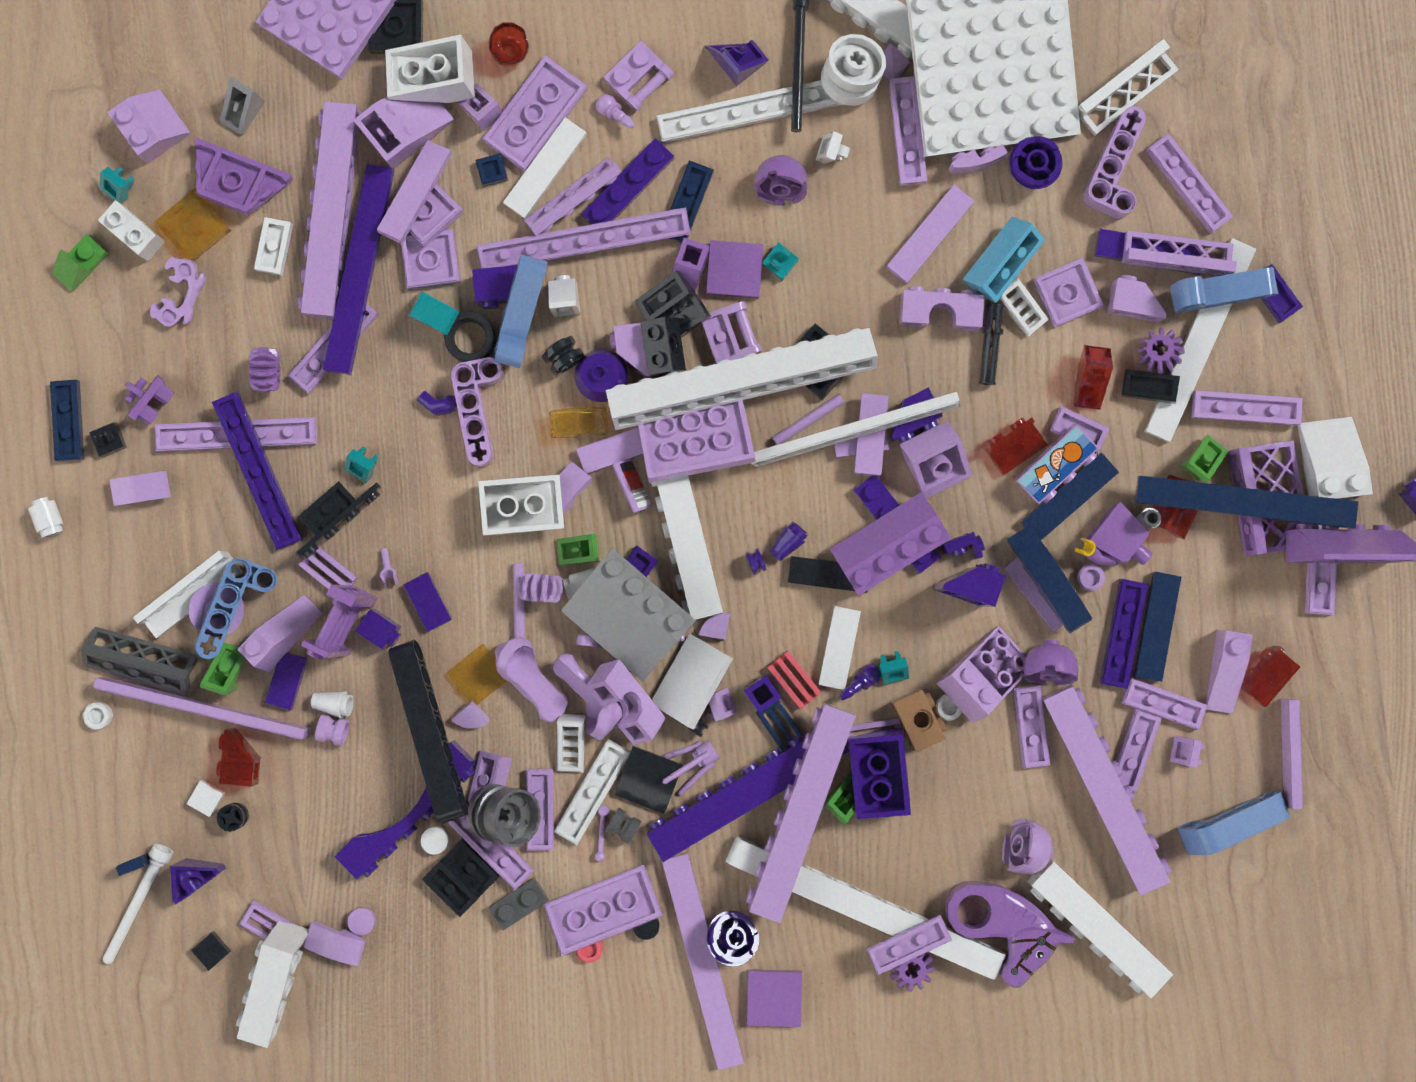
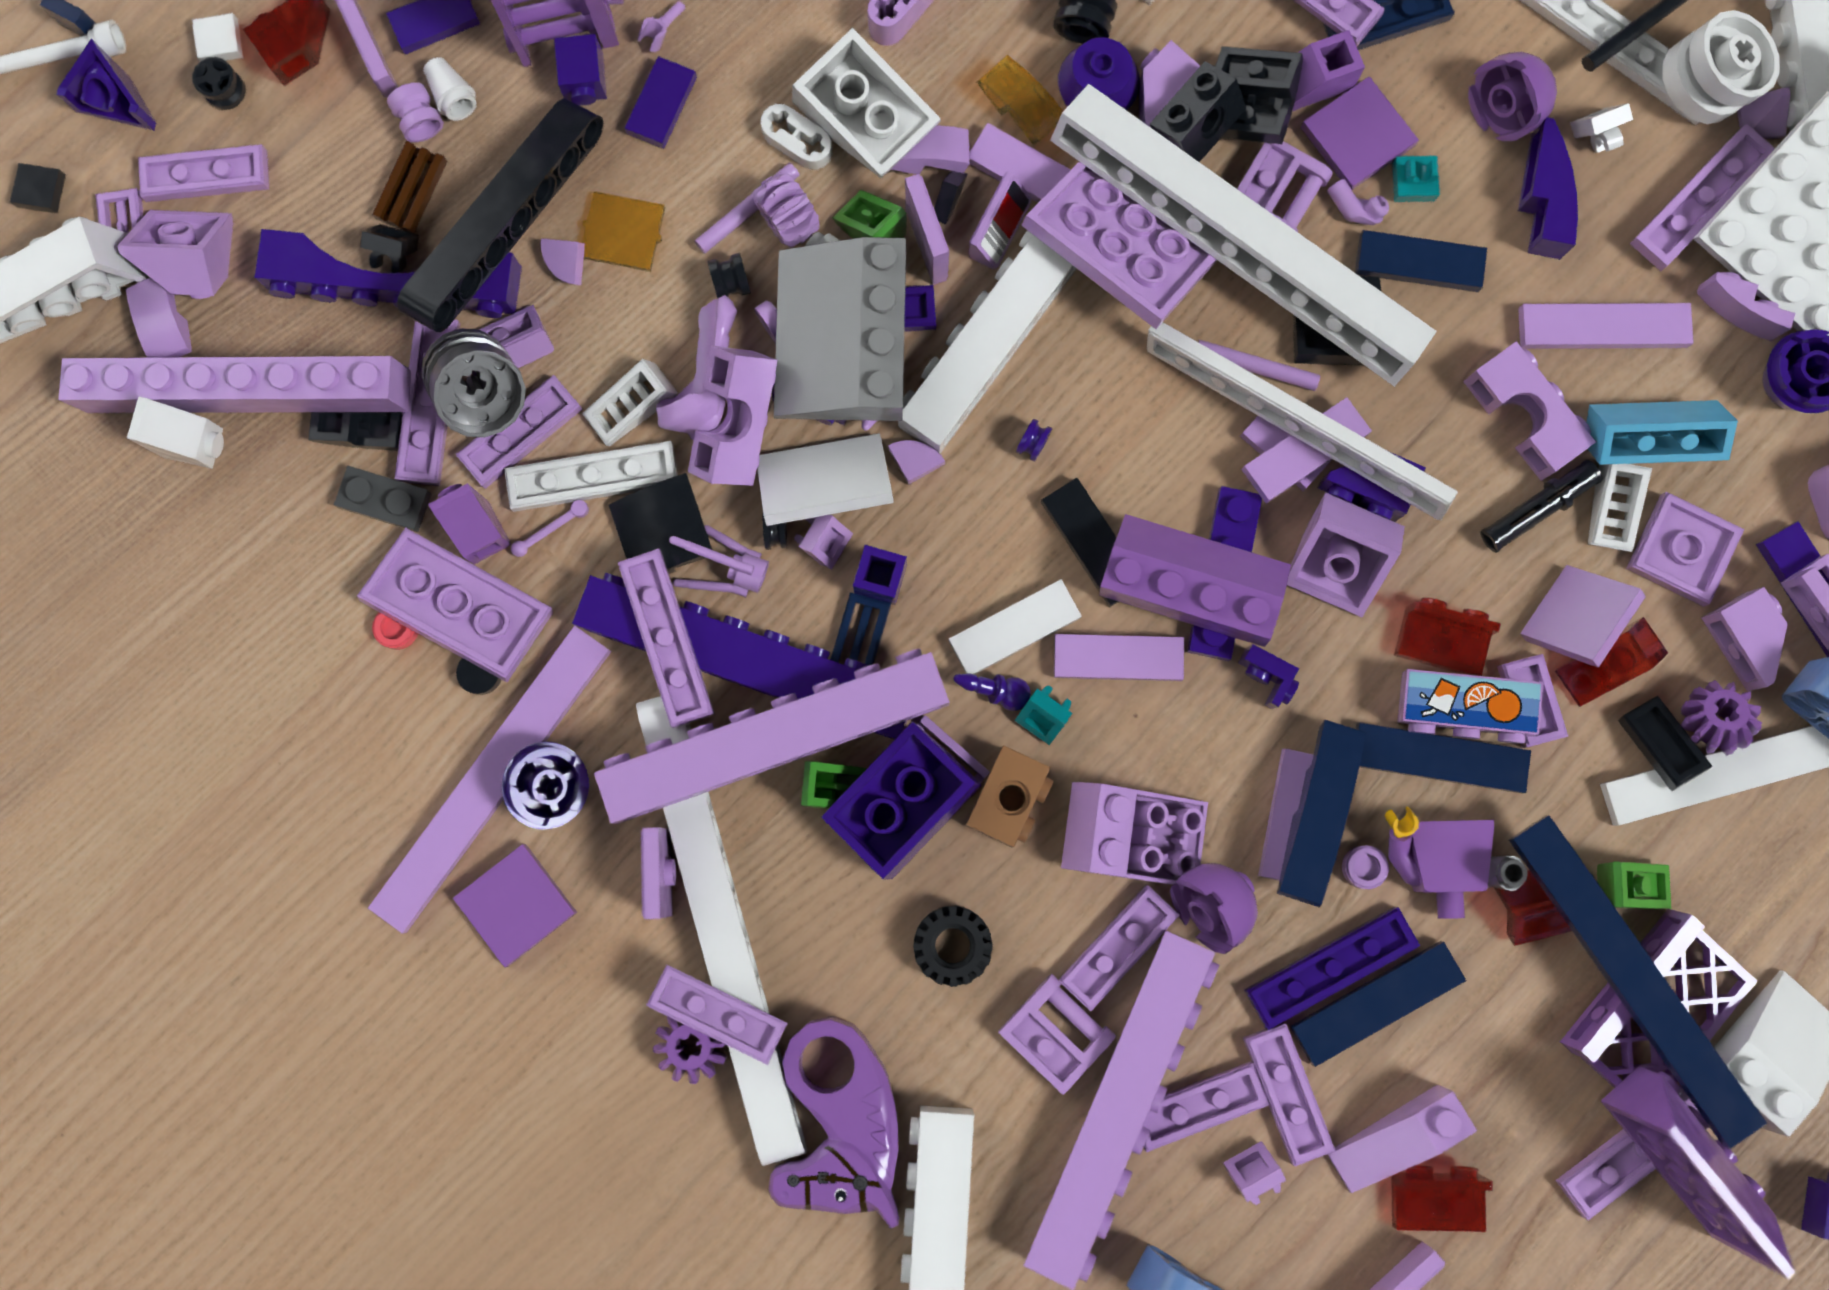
camera: 50 degrees right, 5 degrees down
(272, 861) = (203, 173): none -> lavender tile
(307, 903) = (182, 250): none -> lavender slope
(358, 768) = (396, 181): none -> reddish brown tile
(361, 921) = (212, 331): lavender tile -> none
(390, 797) = (391, 242): none -> black tile
(405, 932) = (238, 384): none -> lavender brick
(406, 980) = (175, 433): none -> white slope
(434, 840) = (380, 337): white tile -> none
(501, 542) = (802, 129): none -> white beam
(518, 665) = (673, 259): lavender hair -> none
(549, 643) = (729, 276): none -> black wheel
(571, 871) = (469, 522): none -> medium lavender slope
(597, 499) = (949, 195): none -> black tile
(609, 528) = (926, 228): none -> lavender tile
(628, 829) = (579, 543): dark grey wheel -> none
(709, 823) = (666, 638): none -> lavender tile
(772, 303) = (1355, 209): none -> lavender arm
(788, 541) = (1092, 459): dark purple cone -> none
(808, 698) = (935, 570): coral tile -> none
(818, 918) = (657, 873): none -> lavender plate
(823, 295) = (1421, 261): none -> dark blue tile
(843, 204) = (1550, 193): none -> dark purple slope
(894, 609) = (1118, 657): none -> lavender tile
(946, 708) = (1051, 823): white tile -> none
(976, 585) = (1233, 714): dark purple slope -> none
(982, 805) = (953, 973): none -> black tyre
(1027, 848) = (963, 1069): lavender cylinder -> none
(1048, 799) = (1046, 1045): none -> lavender plate
(1060, 374) = (1583, 615): none -> lavender tile
(1246, 408) = (1745, 887): lavender plate -> none

